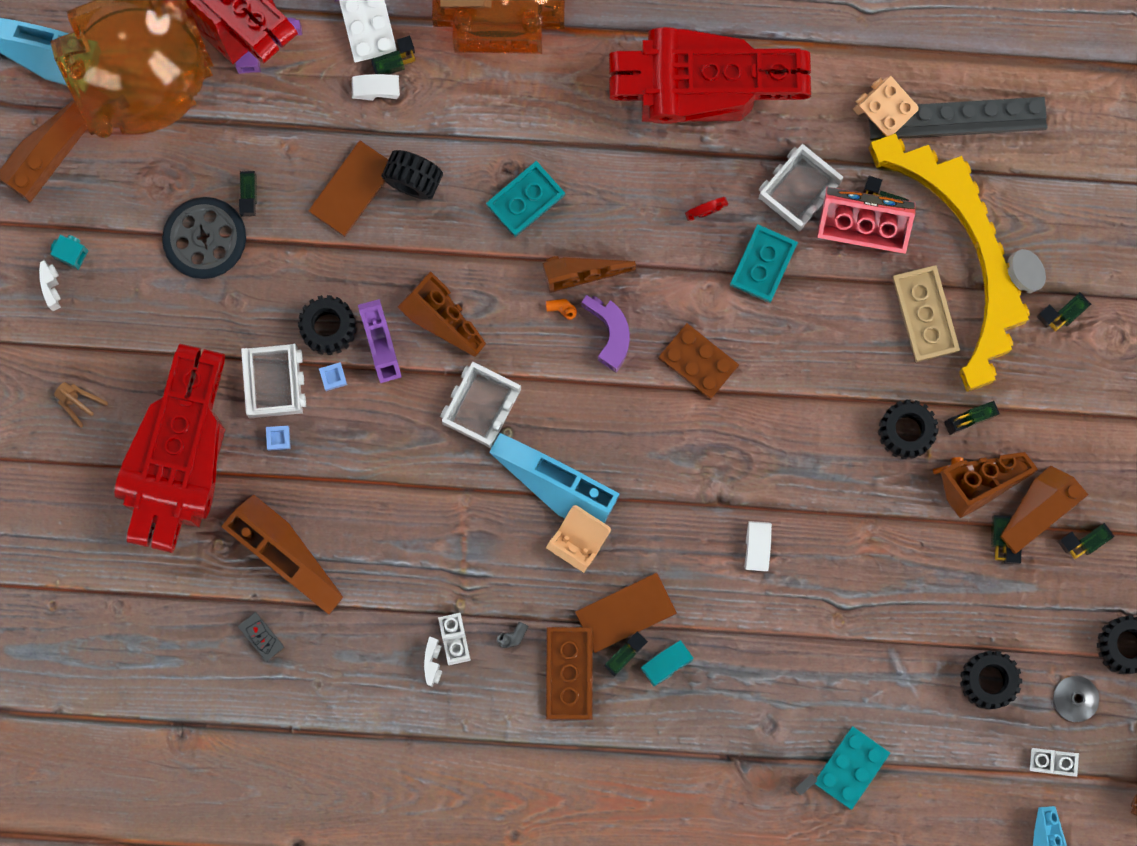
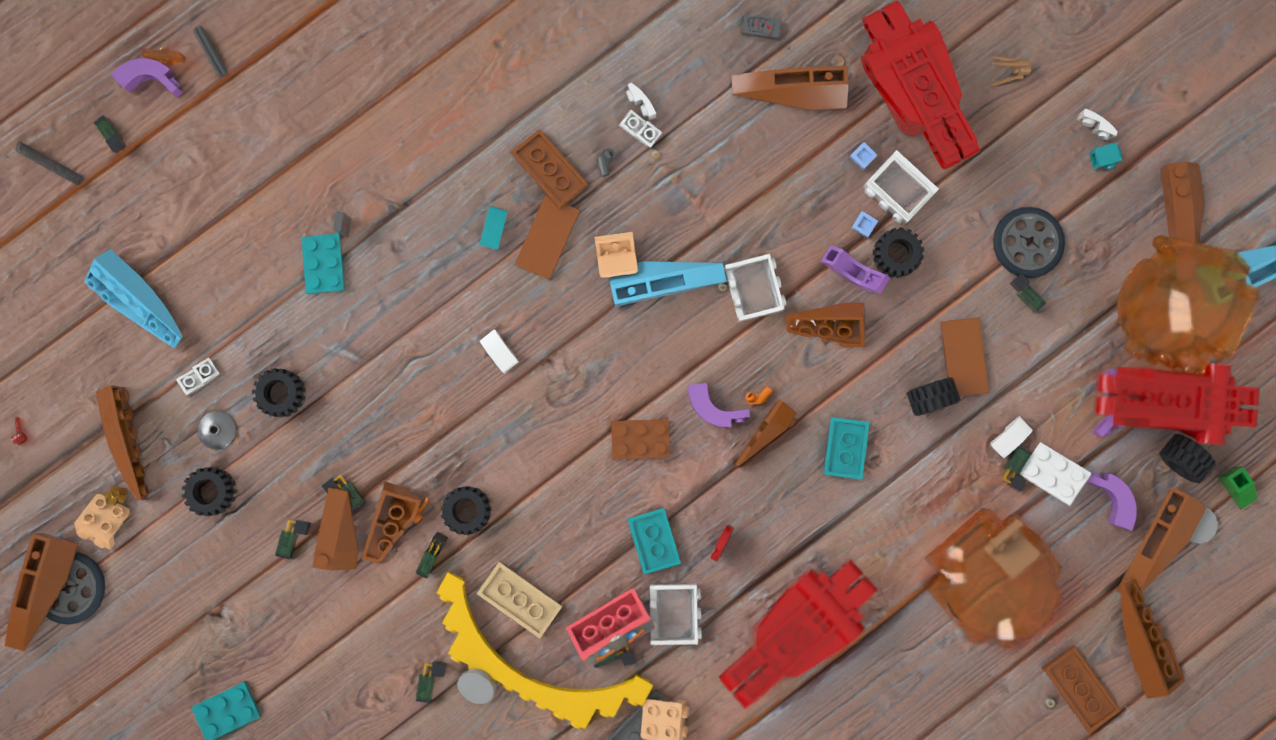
camera: 140 degrees right, 5 degrees up
(625, 654) = (524, 210): piece -> none

